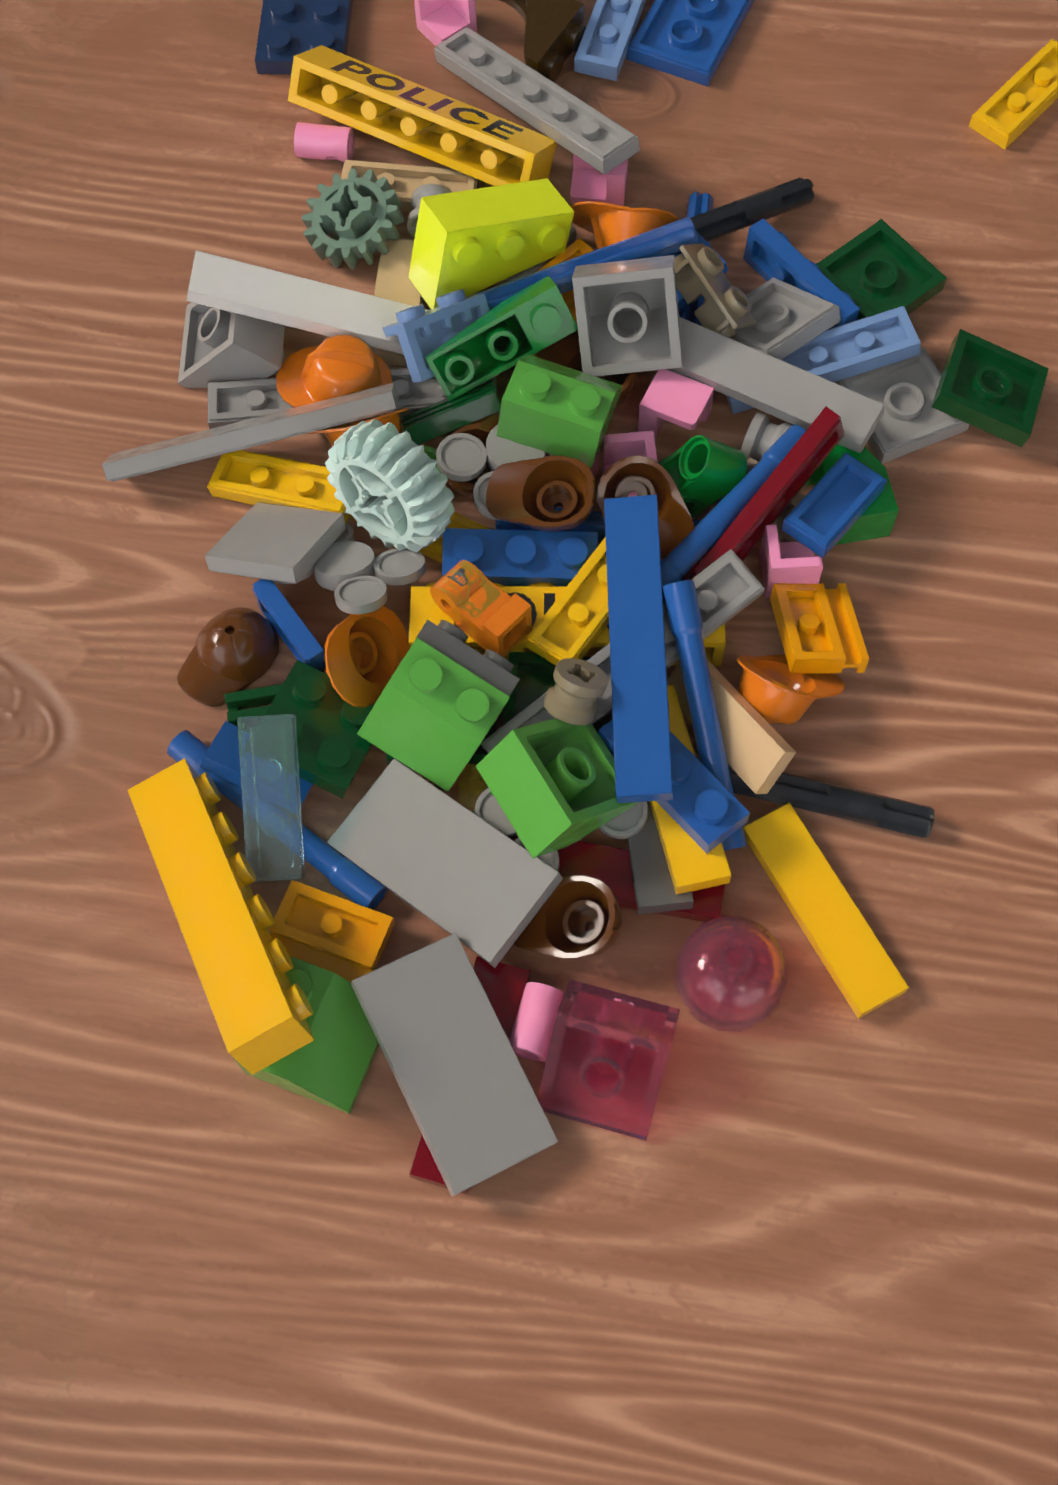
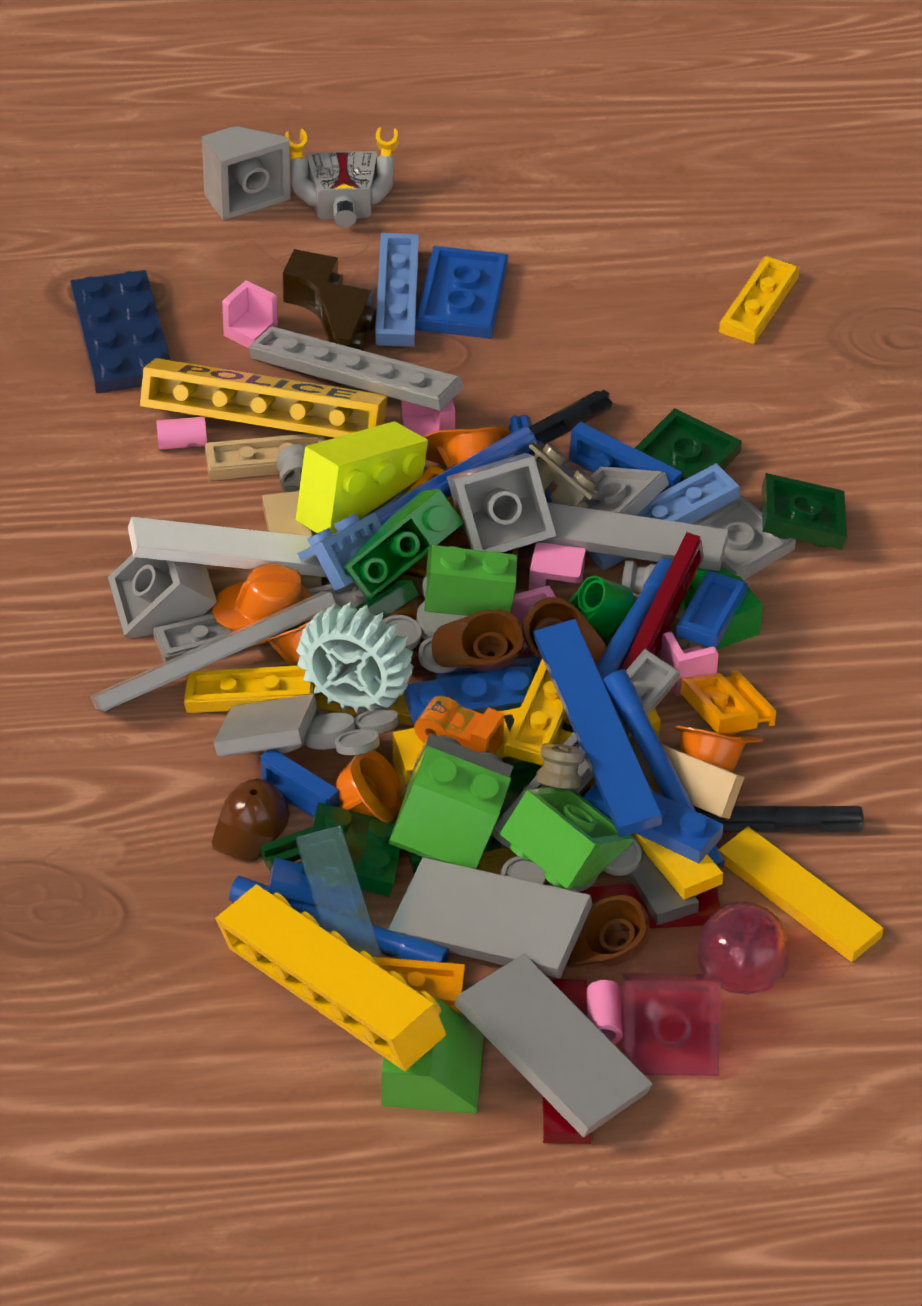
camera: 20 degrees left, 20 degrees down
(353, 218) = (252, 481): sand green gear -> none

